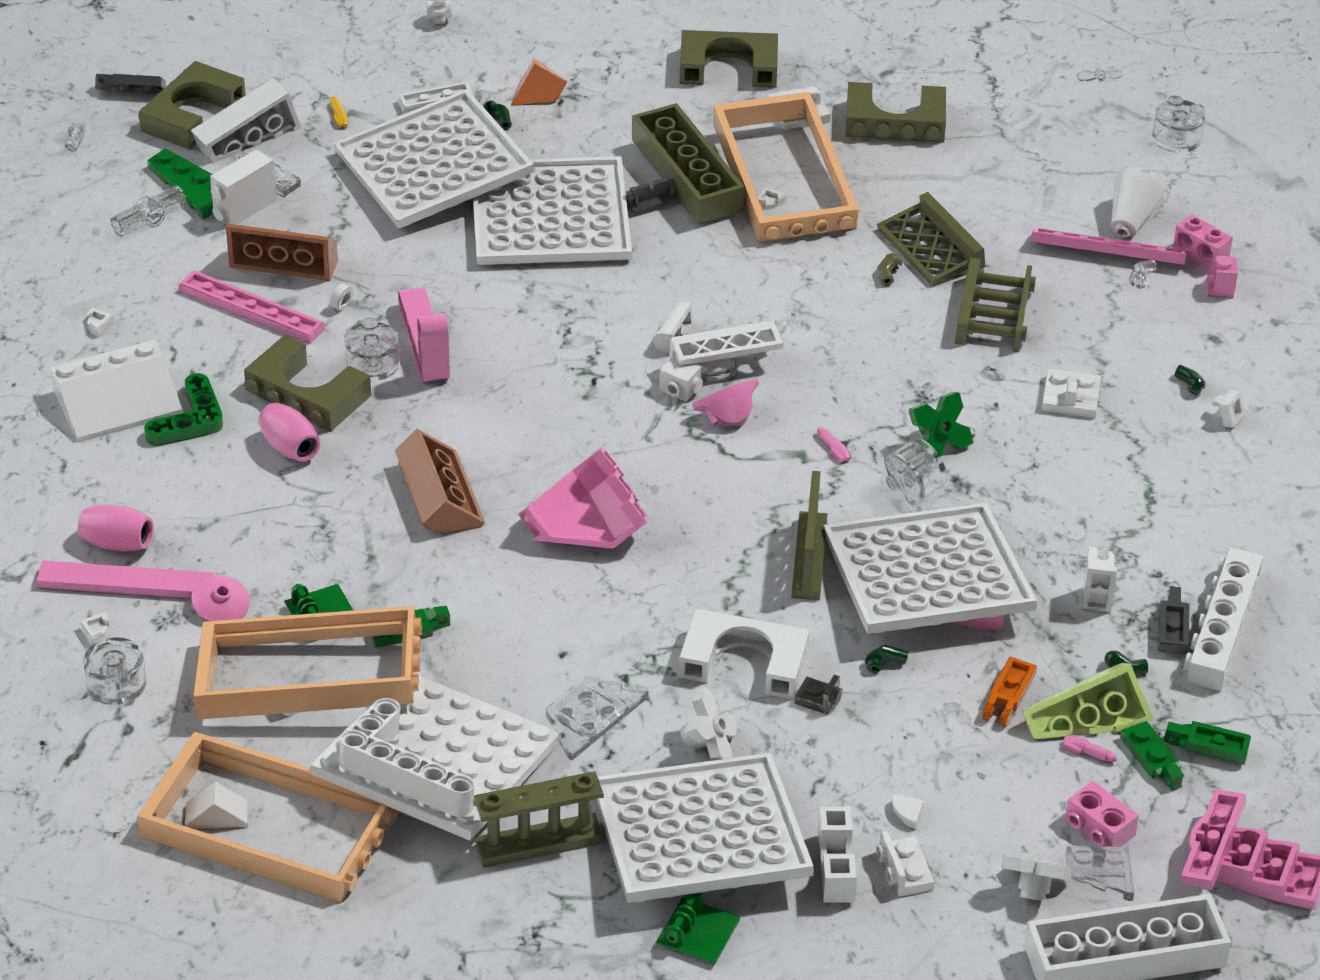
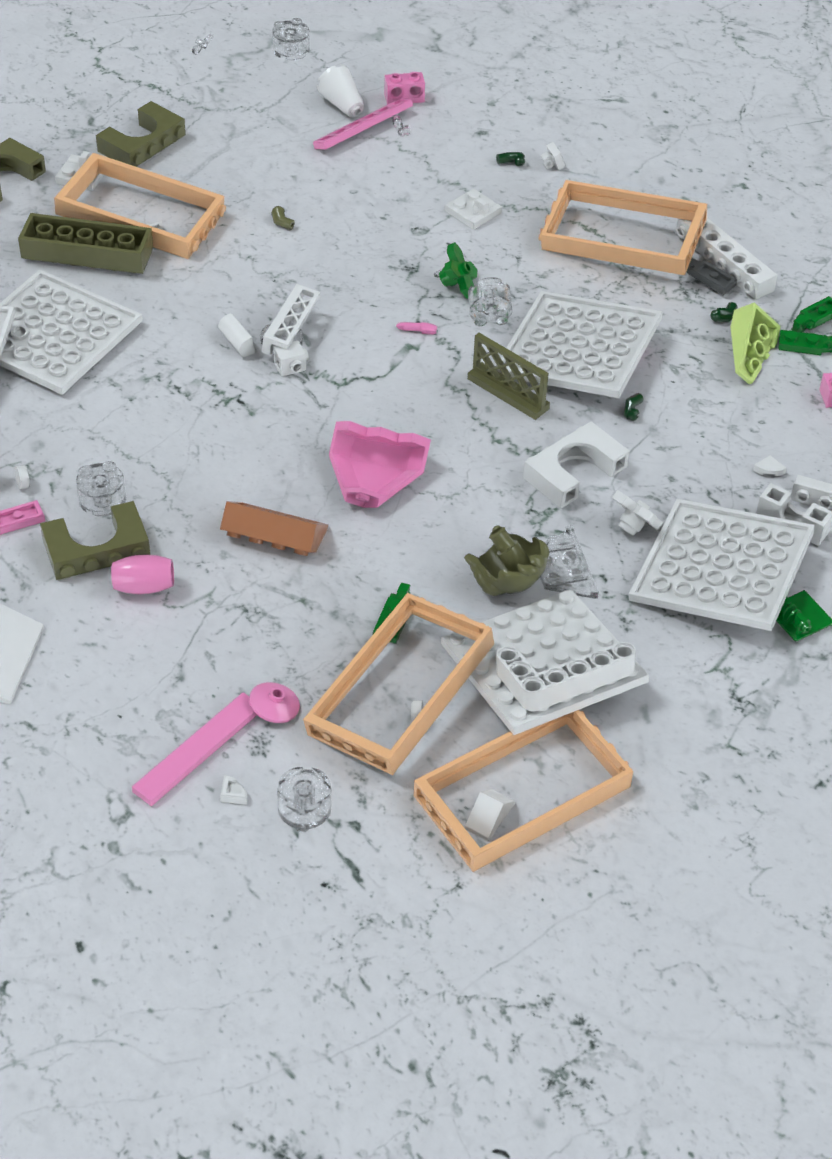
camera: 55 degrees left, 5 degrees up
(115, 528) = (147, 722): bright pink piece -> none
(196, 418) = (35, 607): green beam -> none
(319, 601) = (334, 651): green hinge -> none
(426, 334) = (139, 462): bright pink beam -> none
(536, 665) = (509, 564): none -> olive piece
(542, 838) = (661, 632): olive fence -> none
(643, 198) = (94, 276): dark grey hinge -> none
(728, 406) = (342, 348): bright pink hat -> none
(819, 695) = (641, 450): clear smoke bracket -> none
(948, 231) = (279, 175): olive fence -> none
(971, 309) = (363, 207): olive fence -> none
(1010, 689) = (707, 370): orange hinge -> none
(1080, 745) = (775, 367): bright pink piece -> none
(1099, 582) = (658, 281): white hinge -> none
(1176, 574) = (626, 200): none -> light nougat door
(1222, 277) = (441, 97): bright pink brick -> none

